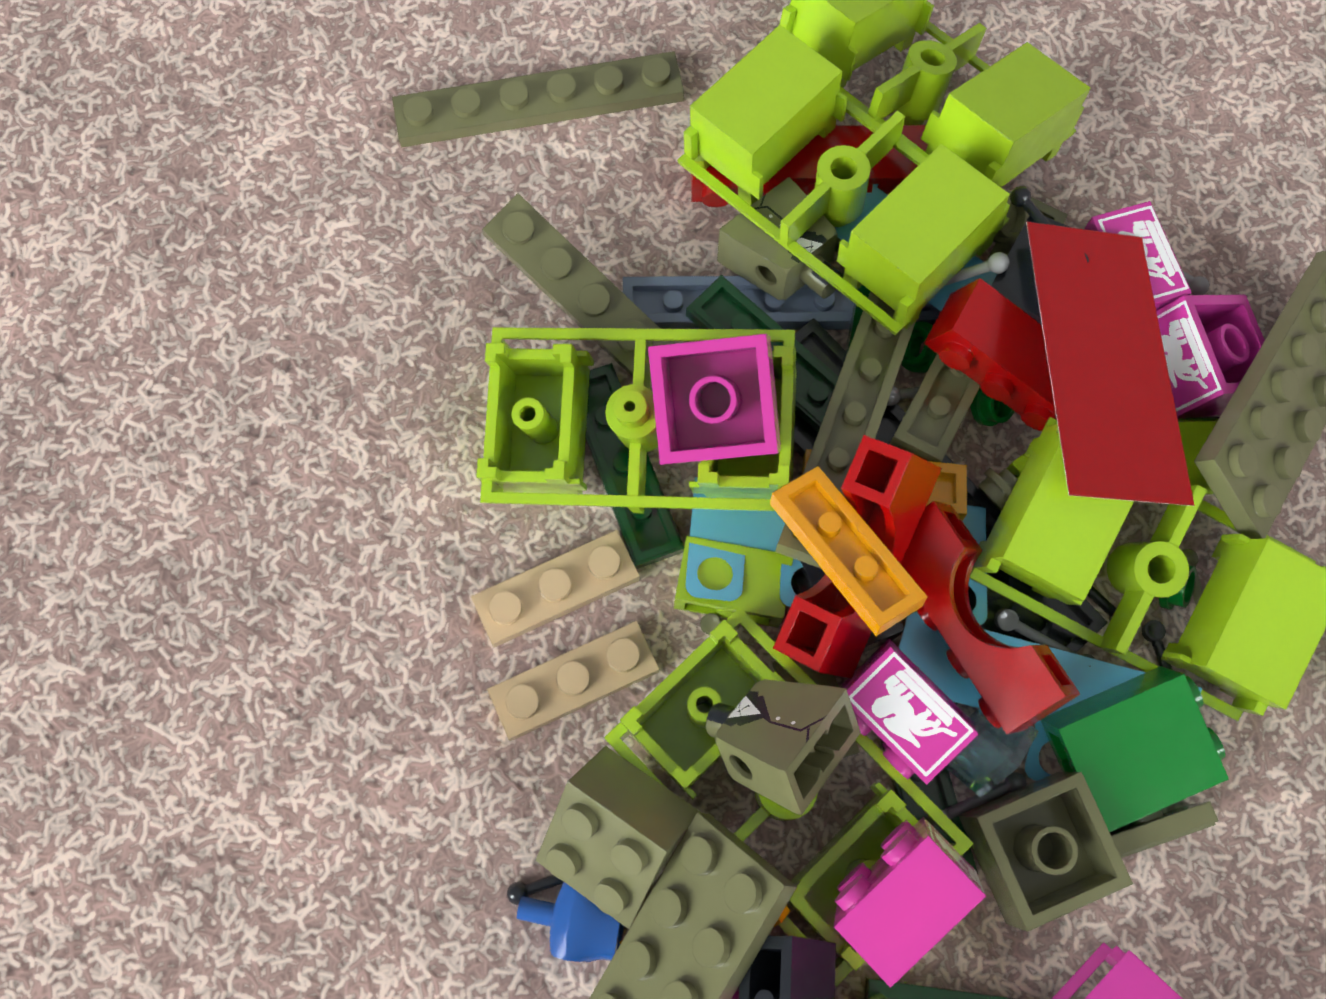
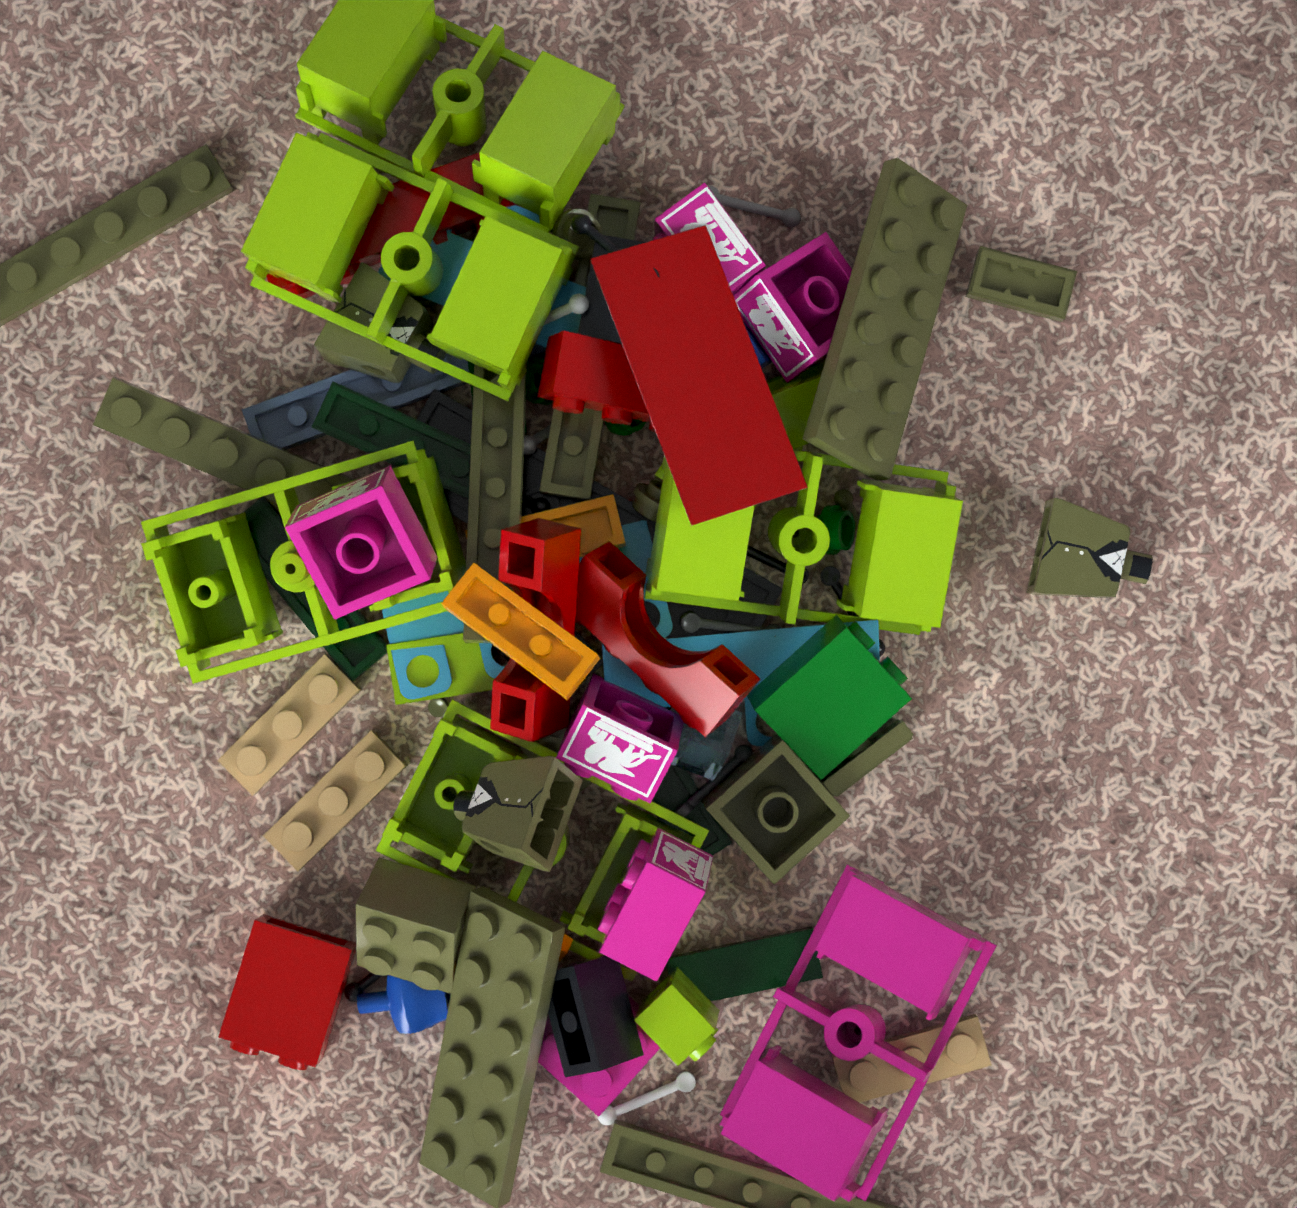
camera: 15 degrees left, 15 degrees up
(447, 867) = (287, 992): none -> red brick

